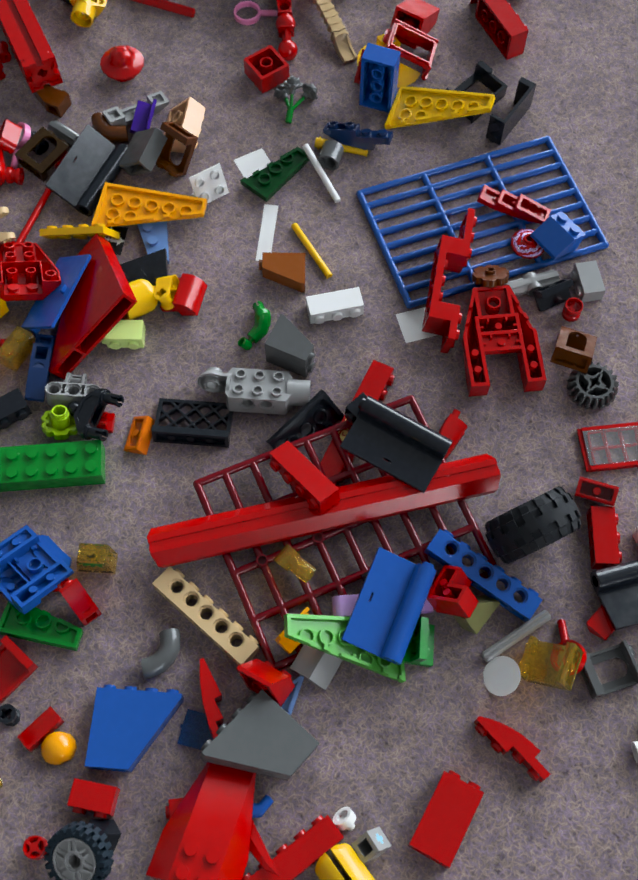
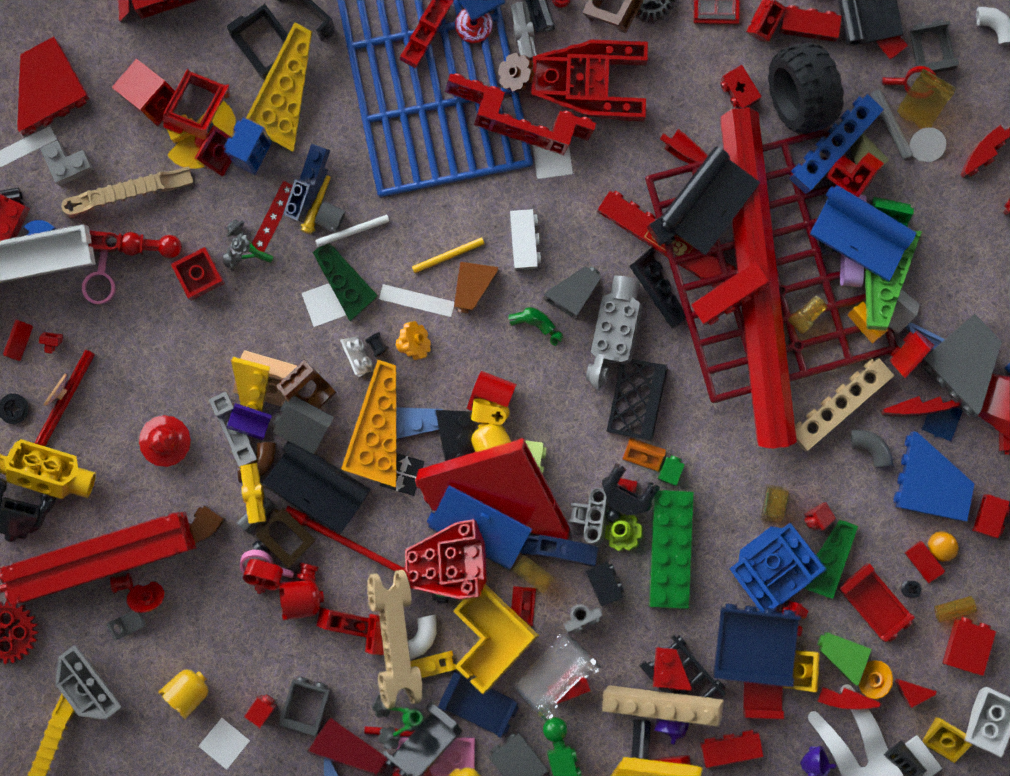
camera: 85 degrees left, 20 degrees up
(78, 120) = (252, 493): none -> yellow piece
(79, 232) = (400, 501): yellow wing -> none
(123, 458) = (671, 470): none -> green brick
(176, 110) = (251, 382): none -> yellow wing
(222, 203) = (377, 344): none -> black bush
(227, 227) = (413, 341): none -> light orange plant
(315, 118) = (272, 217): none -> red sticker
(515, 486) = (740, 78): none -> red brick

